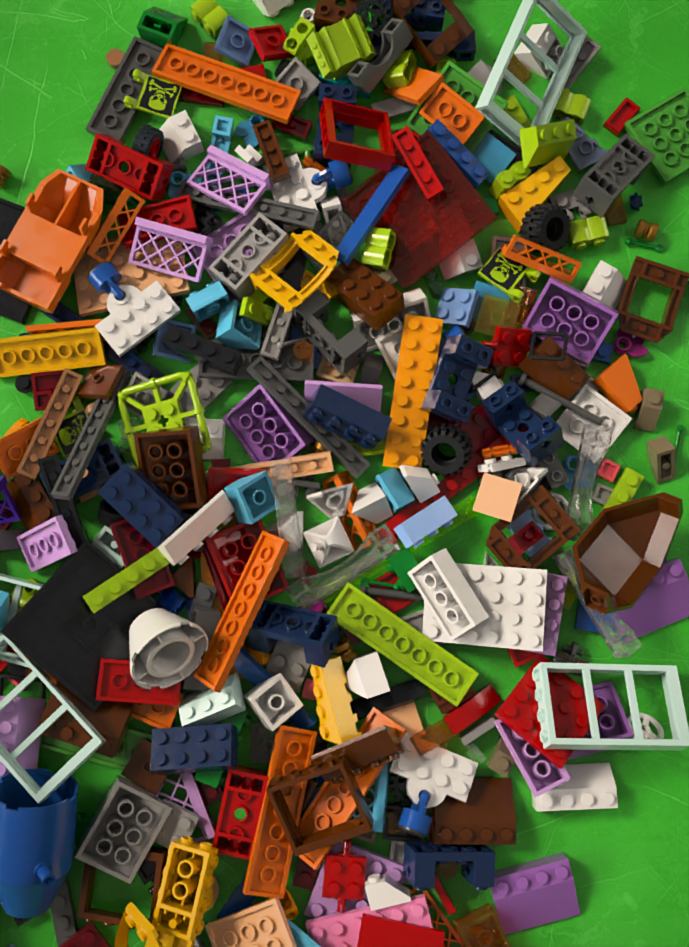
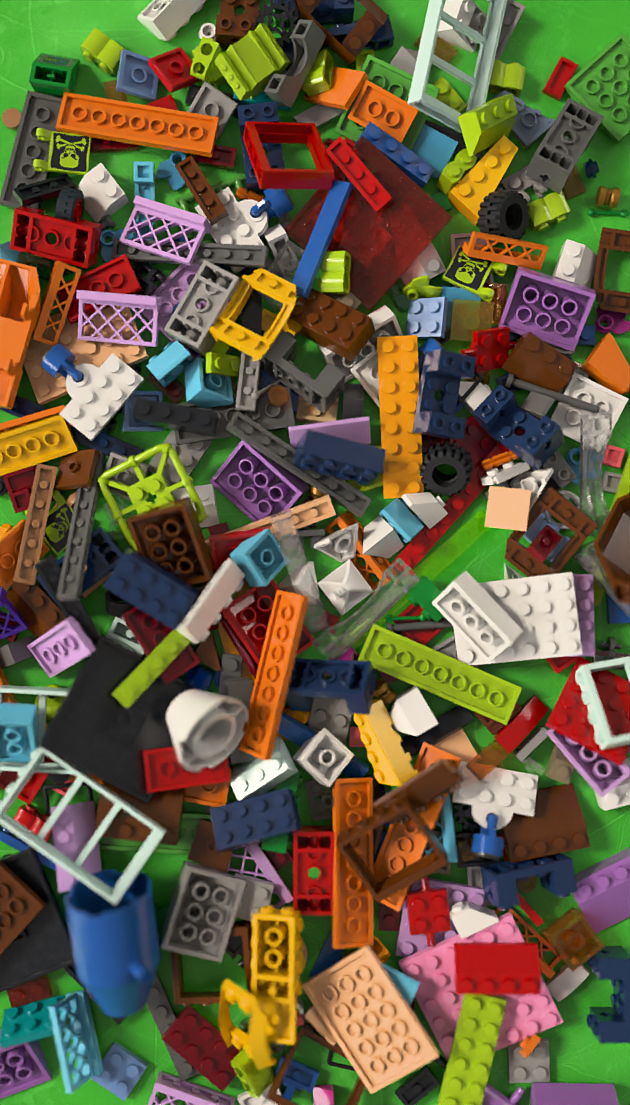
camera: 15 degrees left, 5 degrees up
(126, 124) = (42, 190): none -> black plate
(250, 155) = (180, 199): white slope -> none
(426, 523) = (440, 548): light blue brick -> none
(455, 279) = (420, 288): none -> lime plate
(548, 334) = (548, 351): black piece -> none

